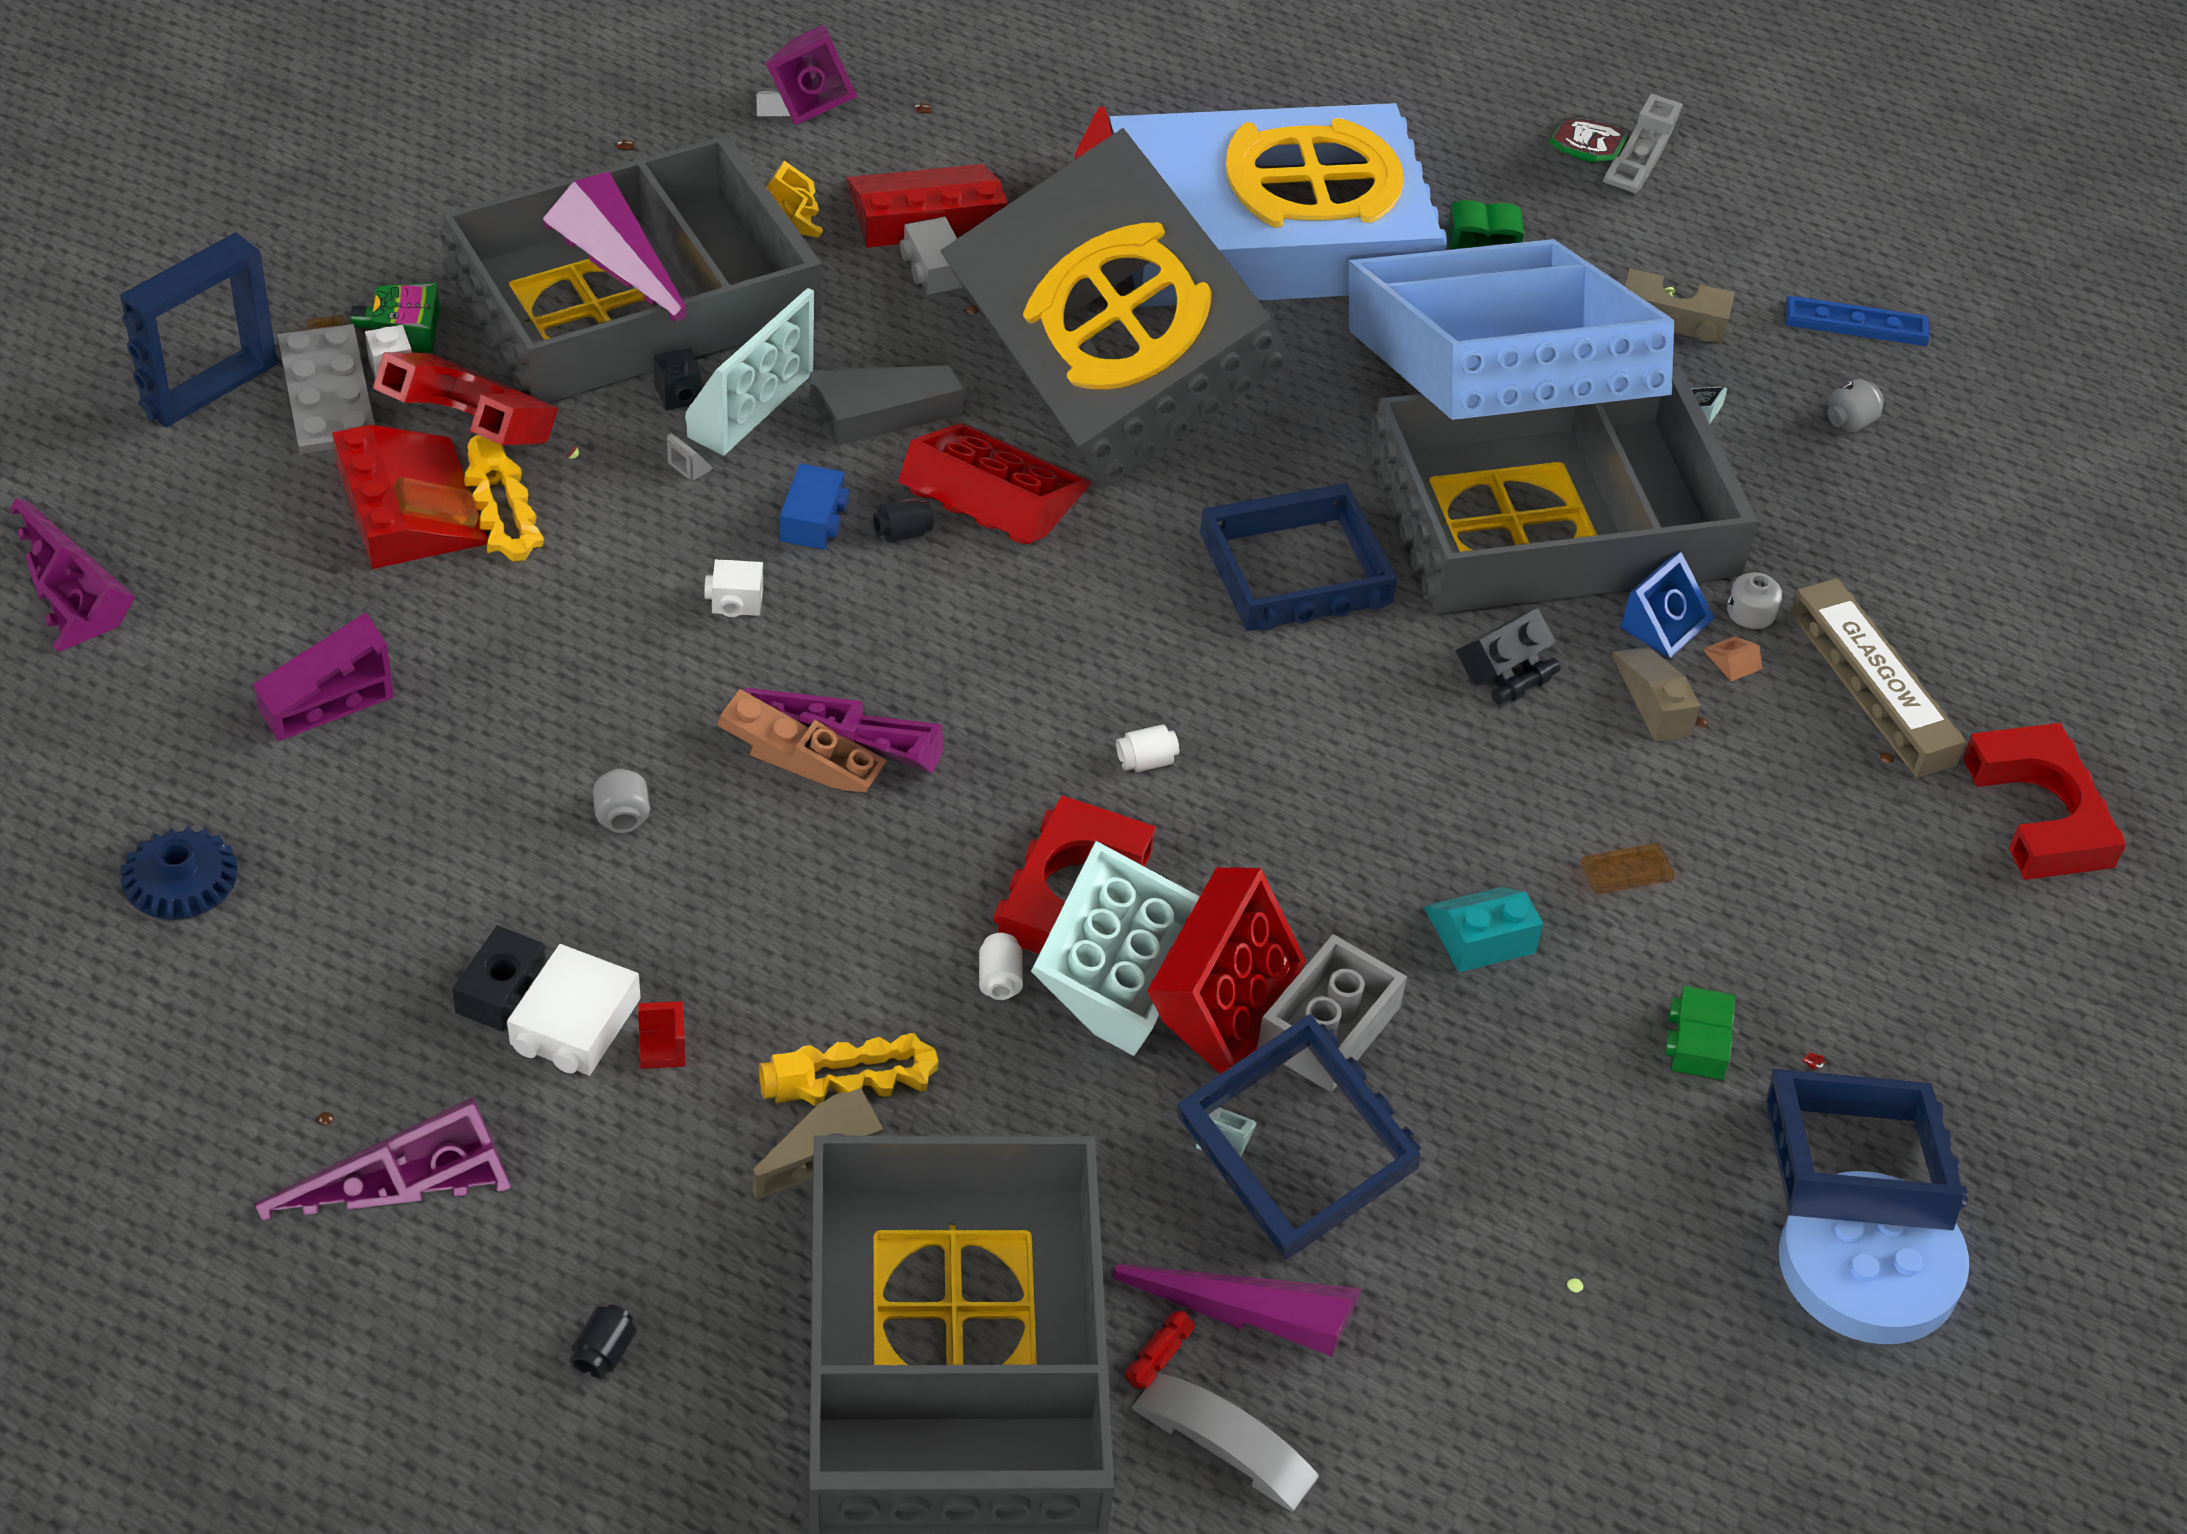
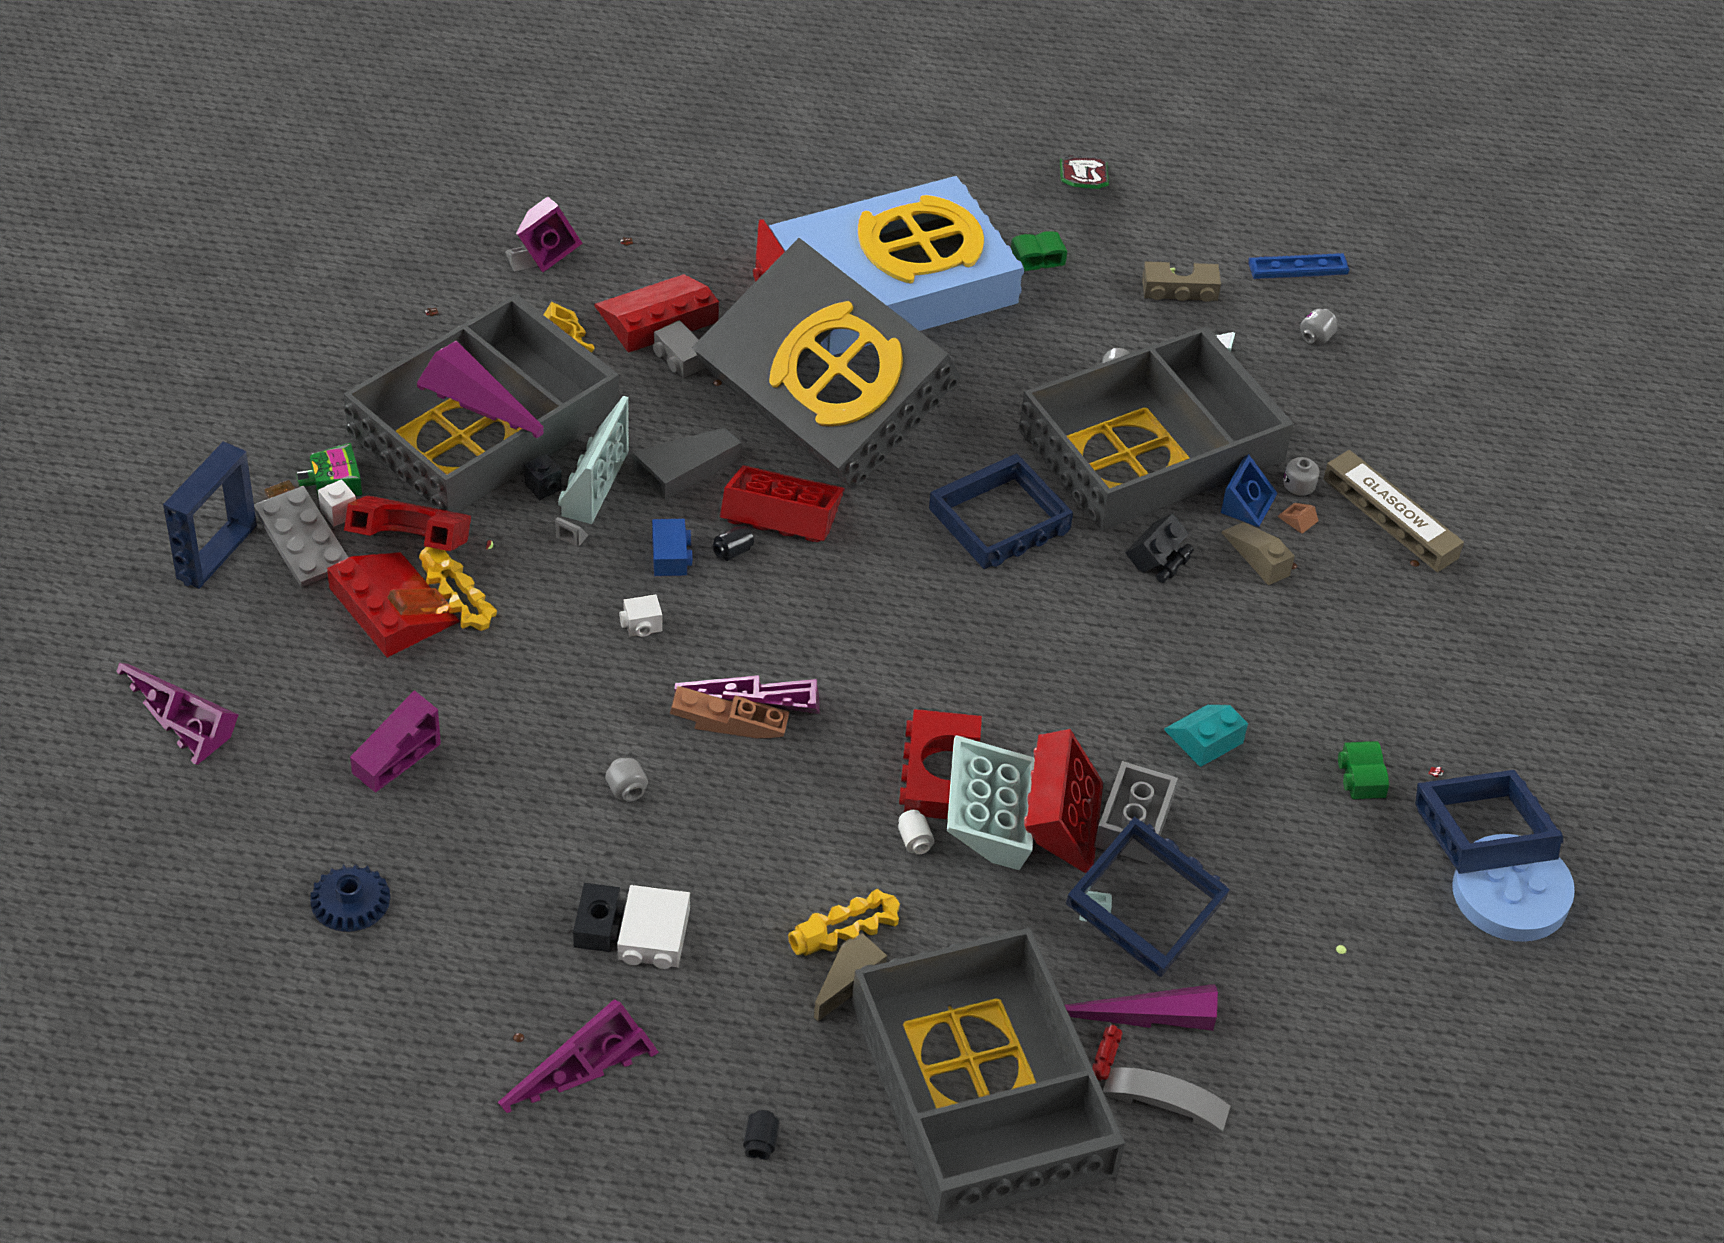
camera: 15 degrees left, 0 degrees up
(661, 1035) = (718, 929): red panel -> none
(1147, 748) = (953, 664): white brick -> none
(1510, 328) = (1092, 324): light blue panel -> none
(1627, 868) = (1281, 674): clear orange tile -> none
(1645, 144) = (1121, 168): light grey slope -> none
(2048, 759) = (1516, 542): red arch -> none

